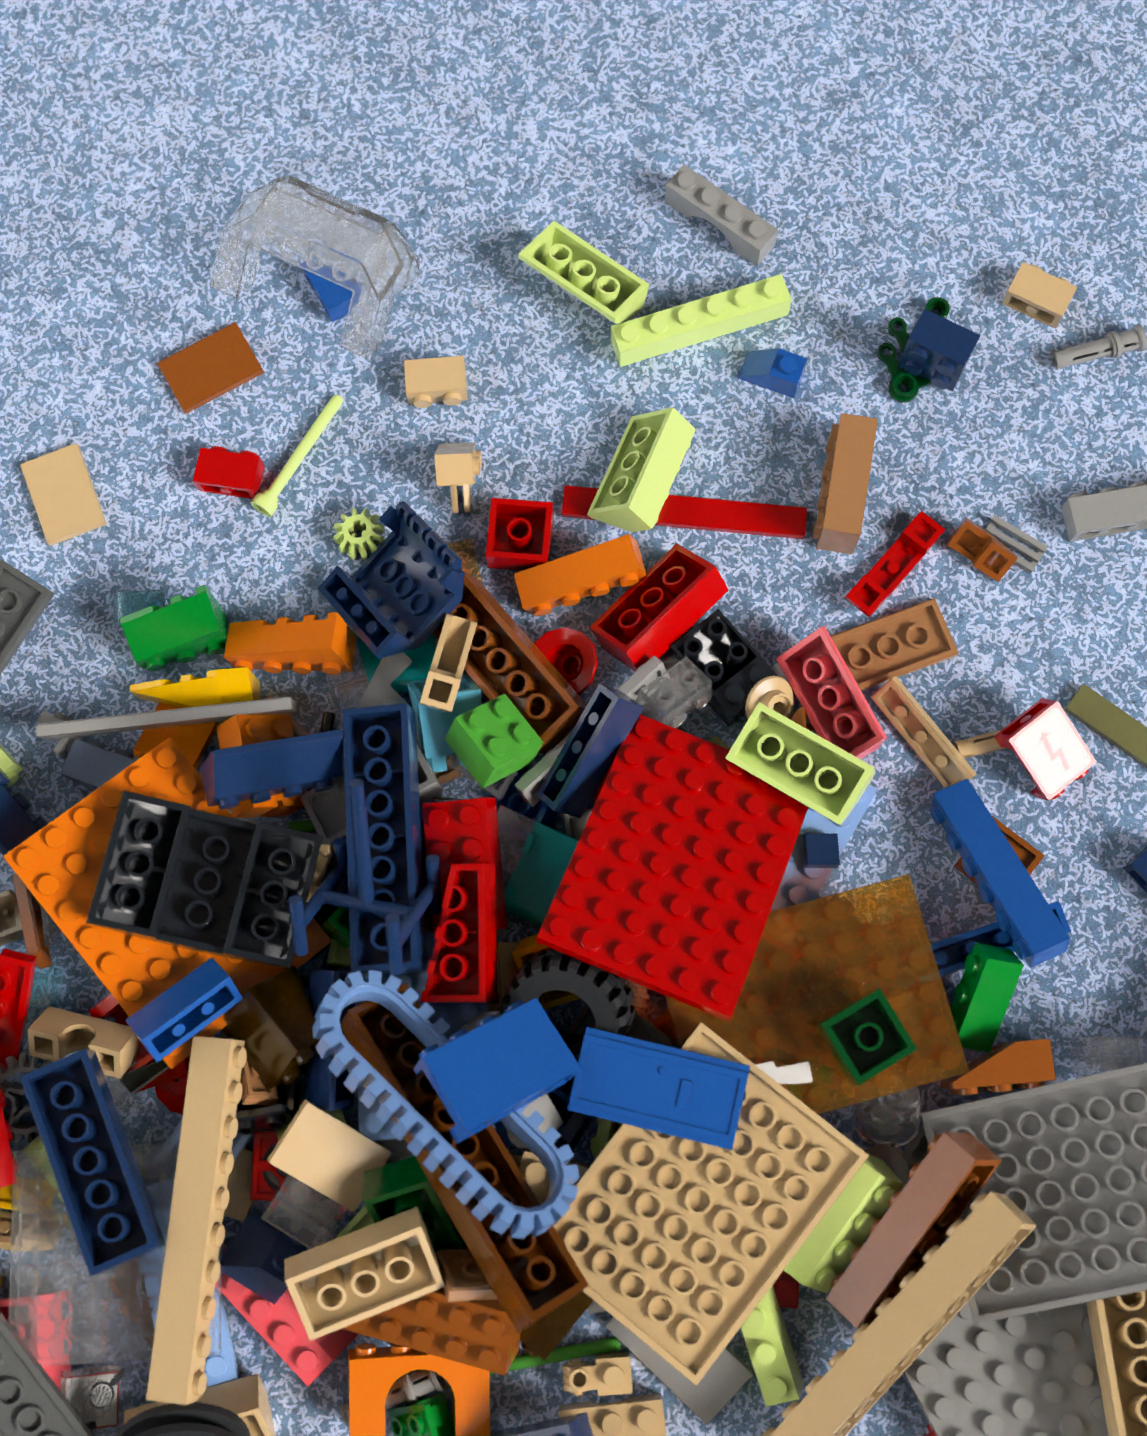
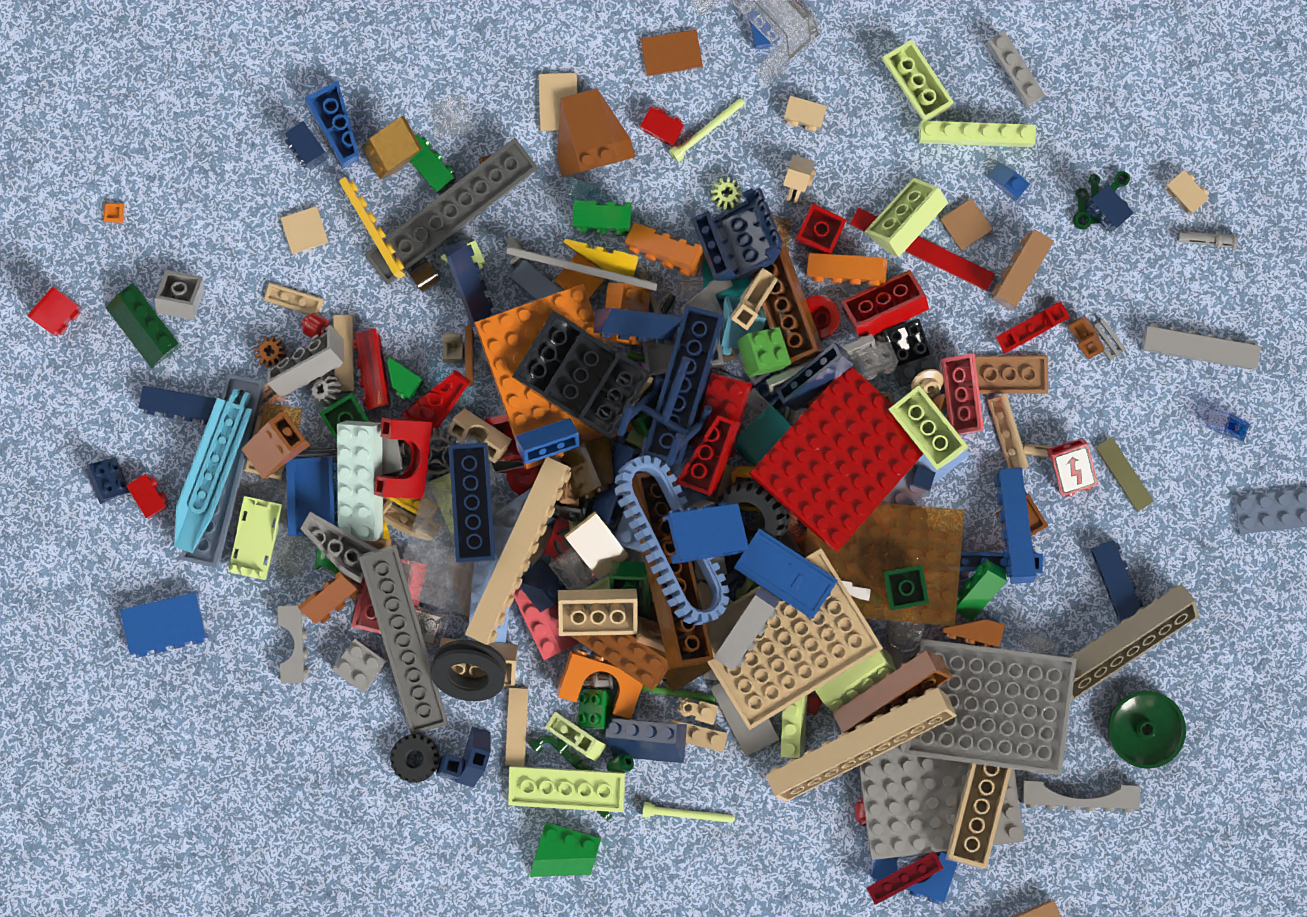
camera: 10 degrees right, 10 degrees up
(123, 521) = (590, 134): none -> dark orange wedge
(627, 1209) = (747, 628): none -> light grey wedge
(735, 454) = (966, 224): none -> medium nougat tile

